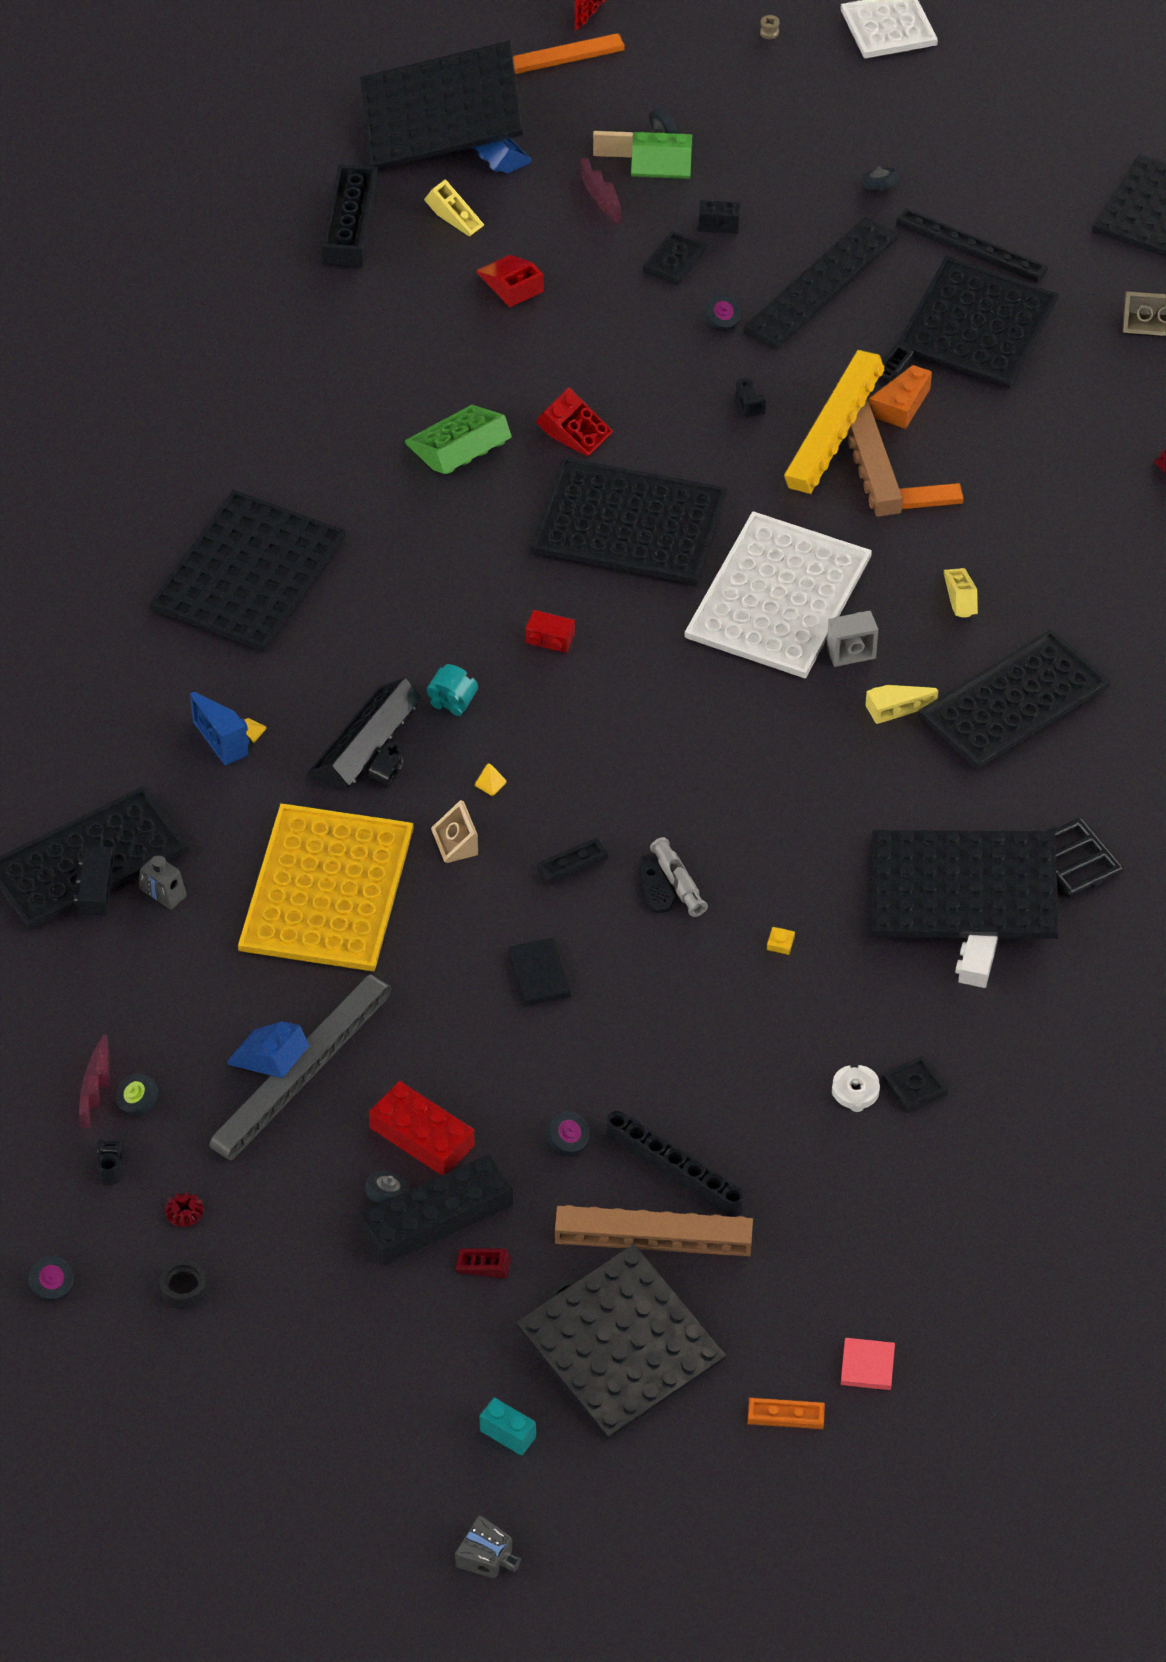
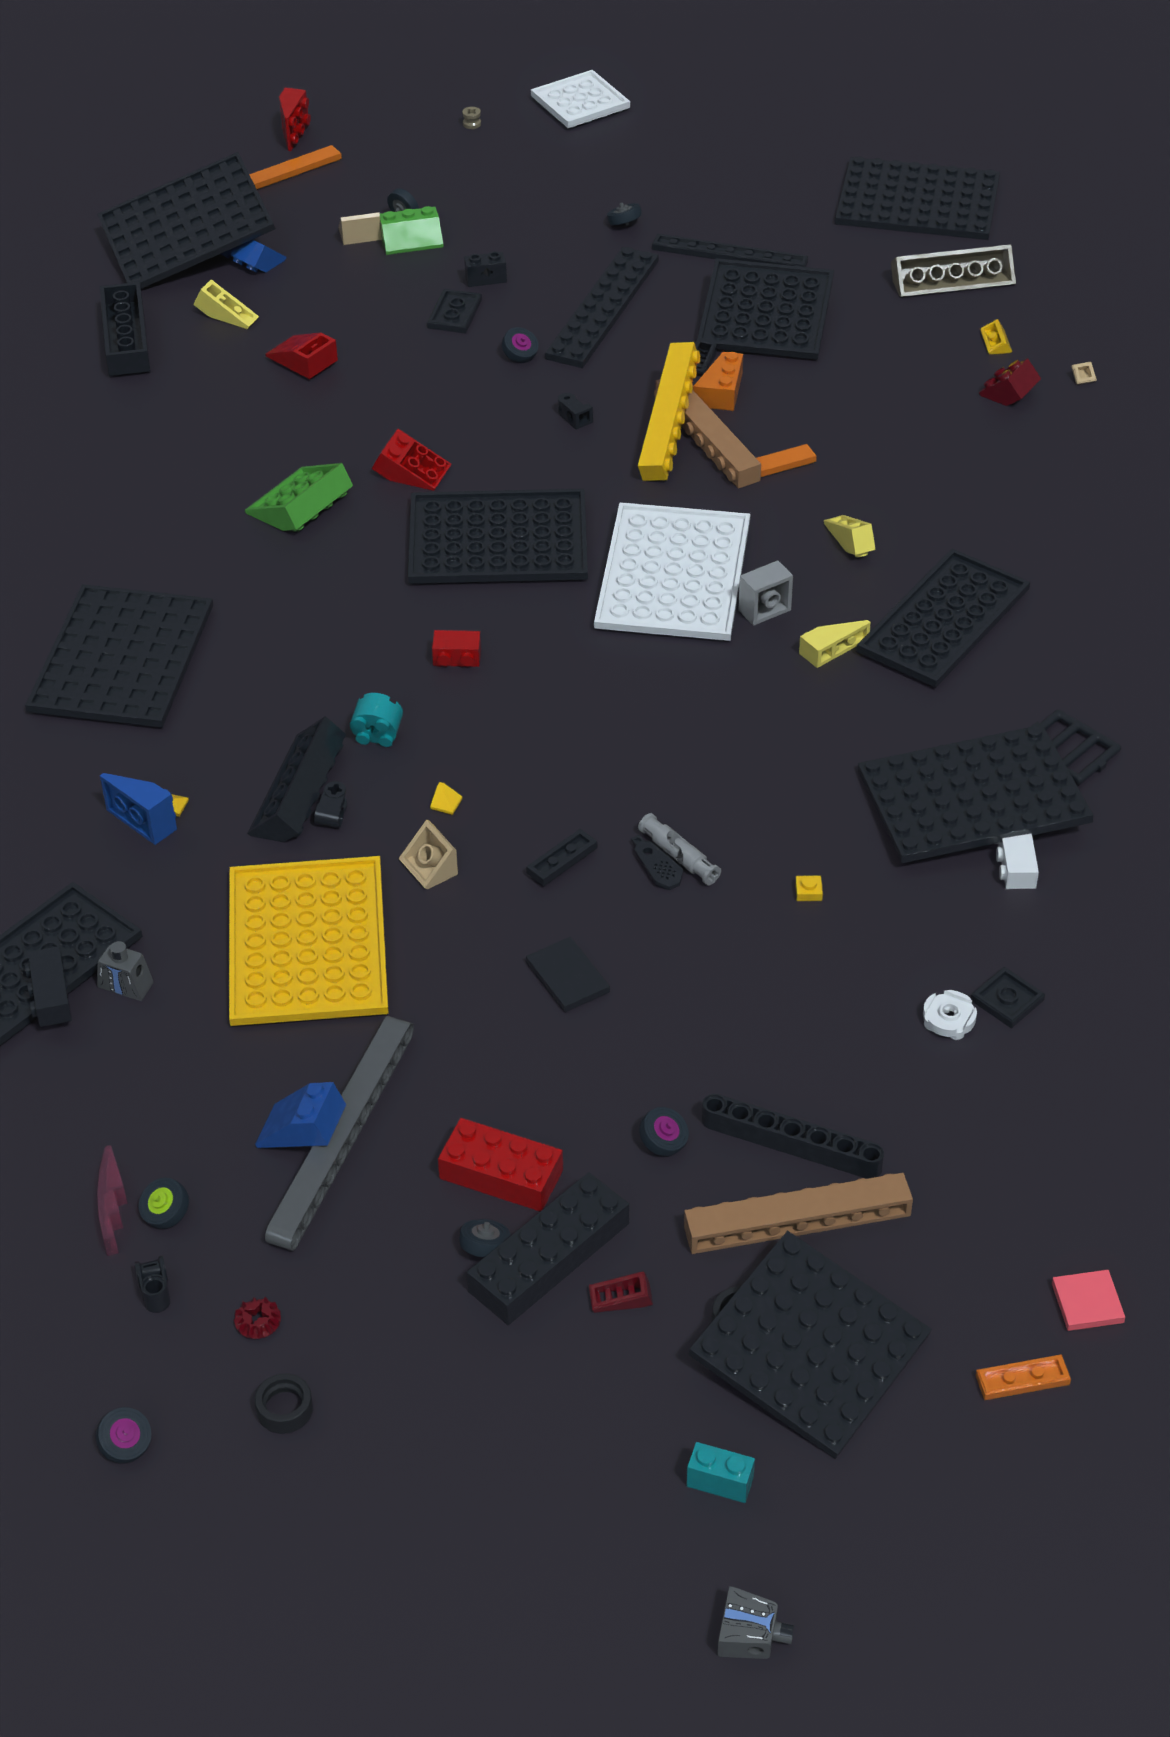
camera: 15 degrees left, 5 degrees down
(602, 193) = (363, 269): clear pink slope -> none

